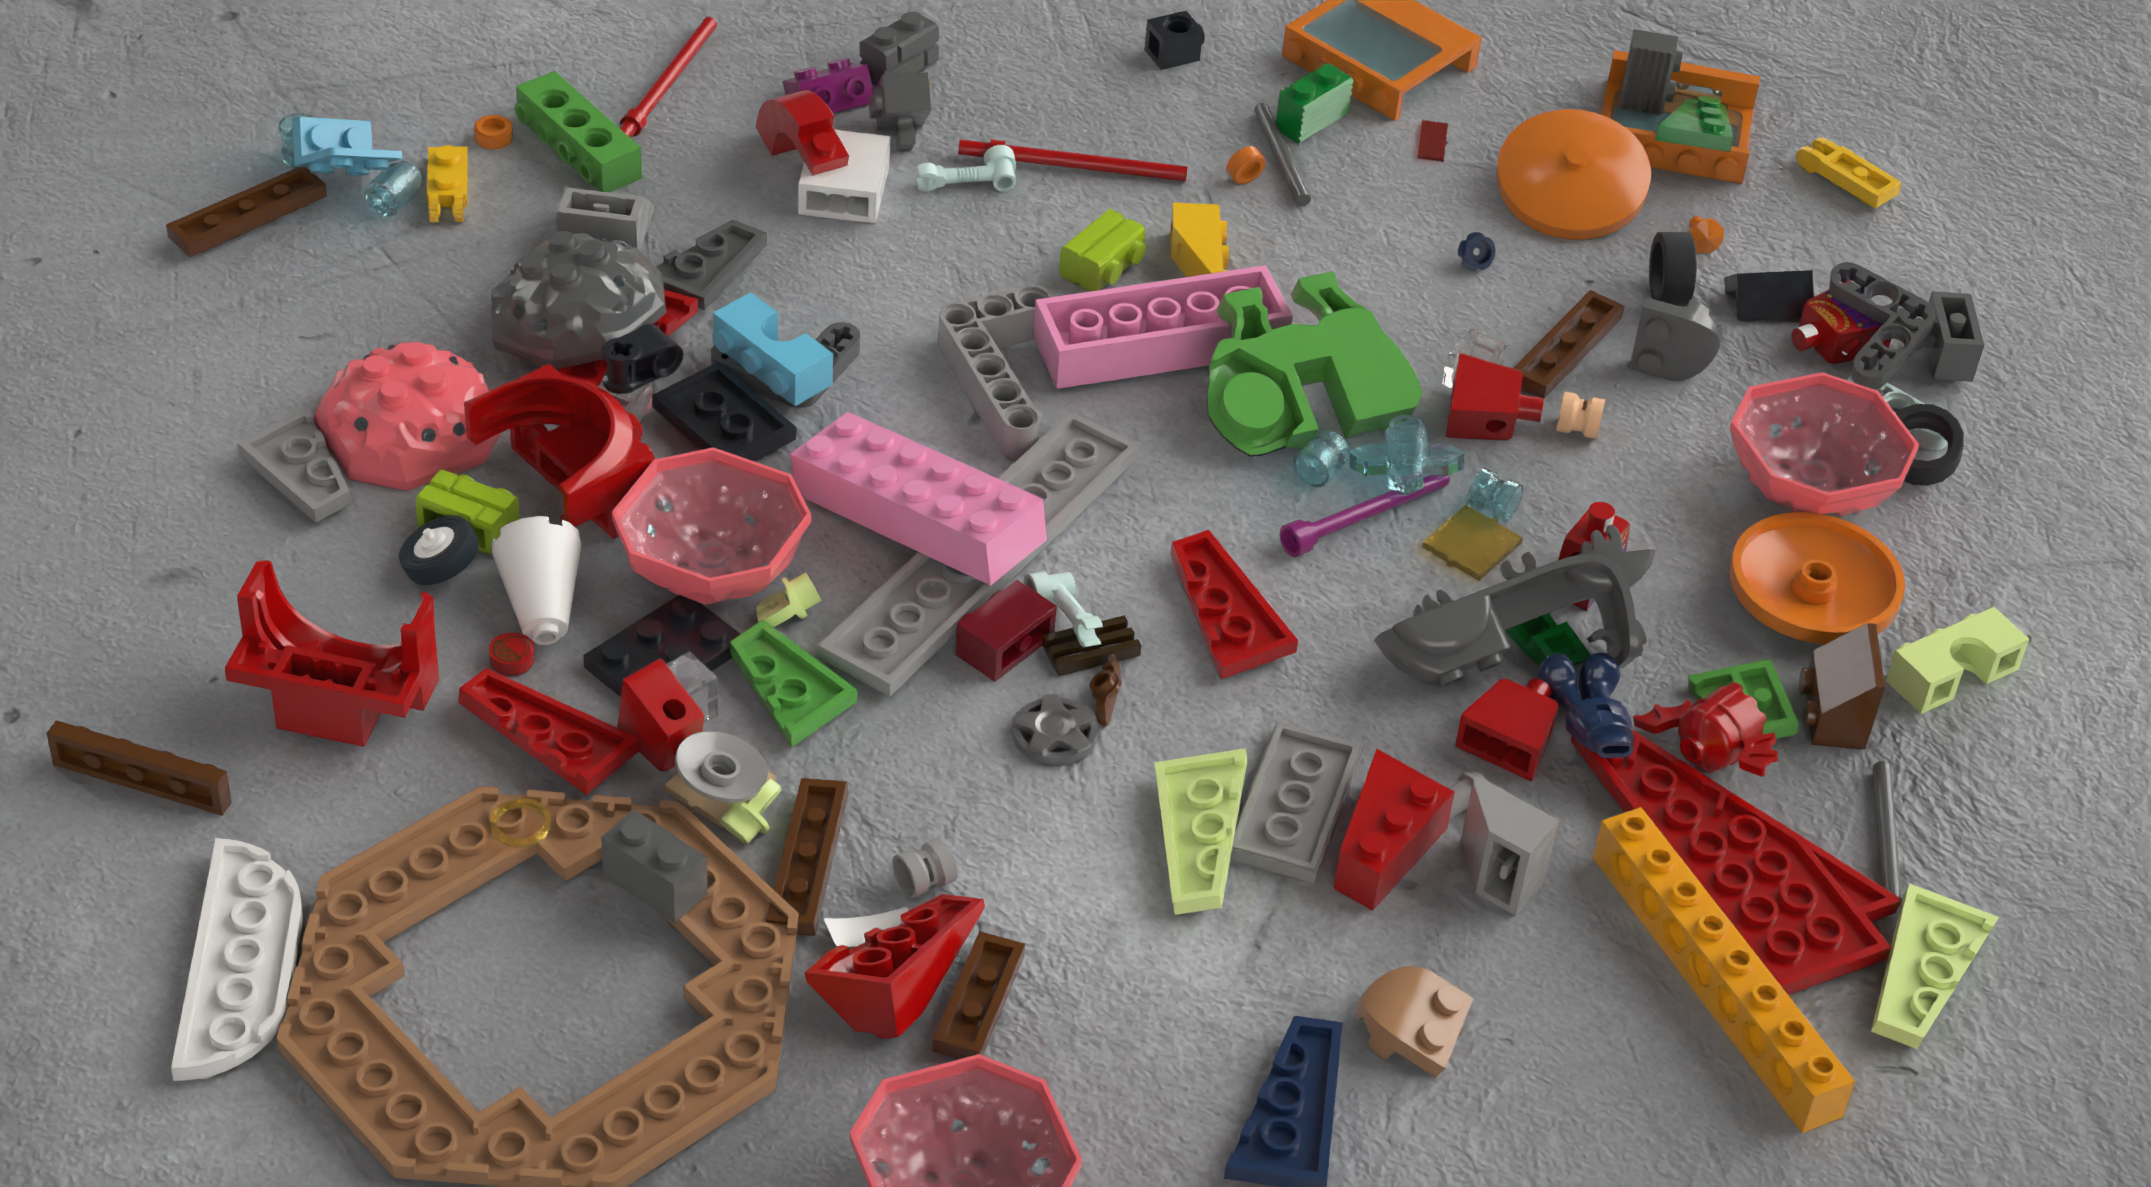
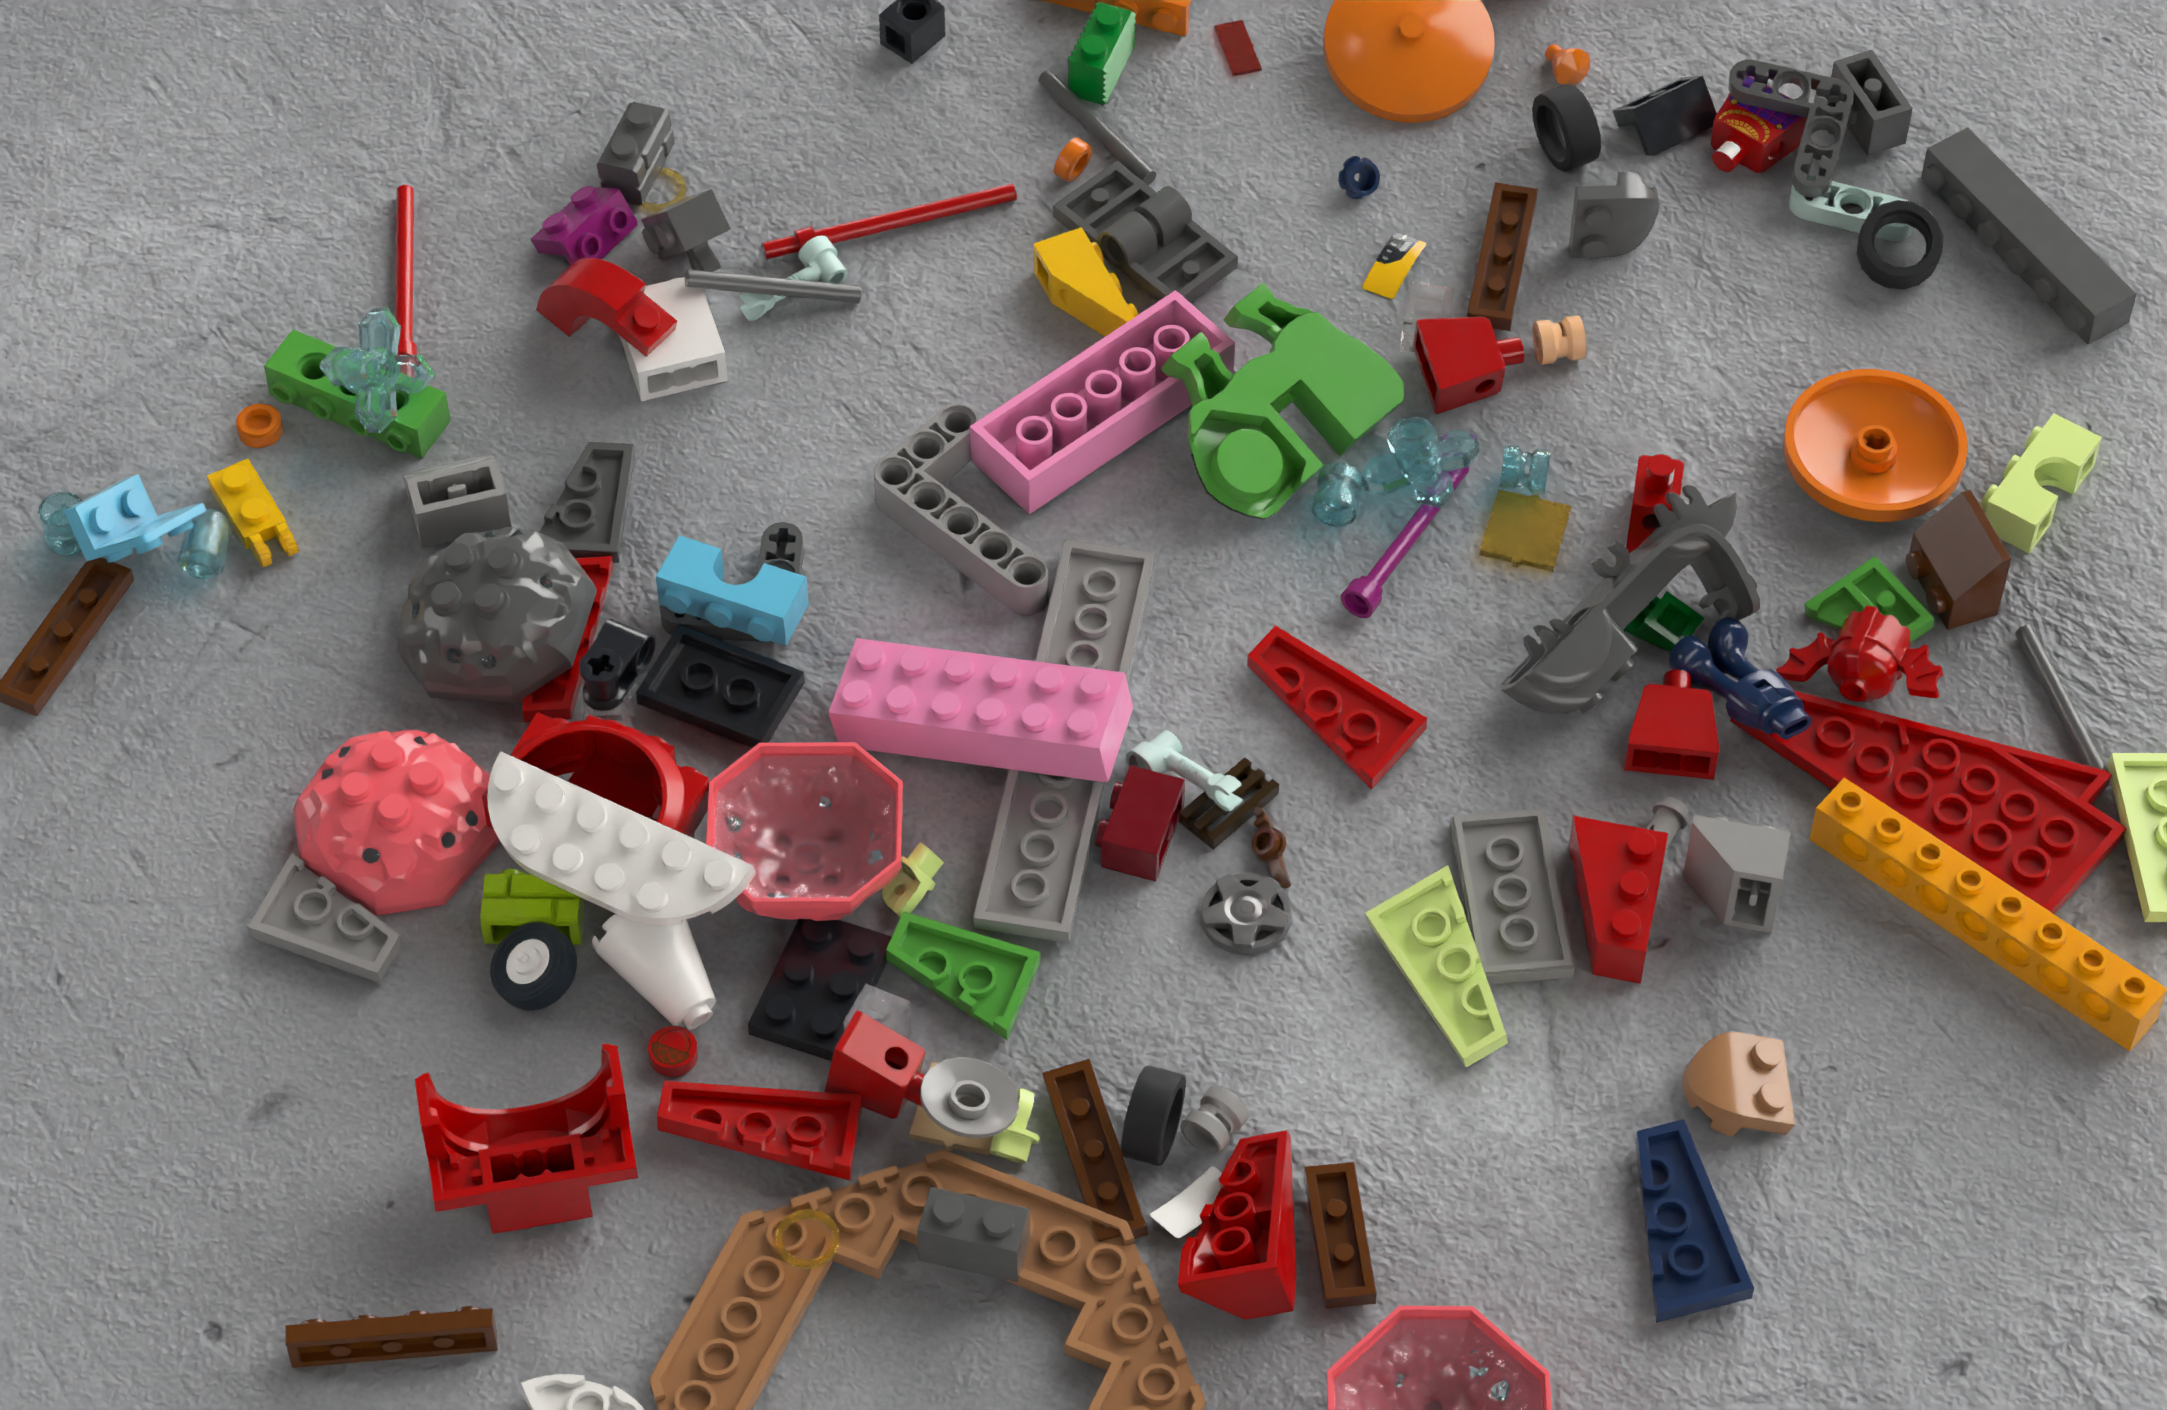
camera: 20 degrees left, 10 degrees up
(533, 470) = (607, 849): none -> white plate
(589, 105) = (377, 370): none -> clear light blue plant
(869, 839) = (1153, 1115): none -> black tyre
(946, 166) = (772, 286): none -> dark grey bar
(1102, 251) = (988, 328): lime brick -> none
(1273, 229) = (1146, 233): none -> dark grey plate
(1478, 318) = (1393, 265): none -> yellow sticker
(1822, 444) = (1816, 290): clear light blue rock -> none
(2046, 479) = (2028, 236): none -> dark grey brick

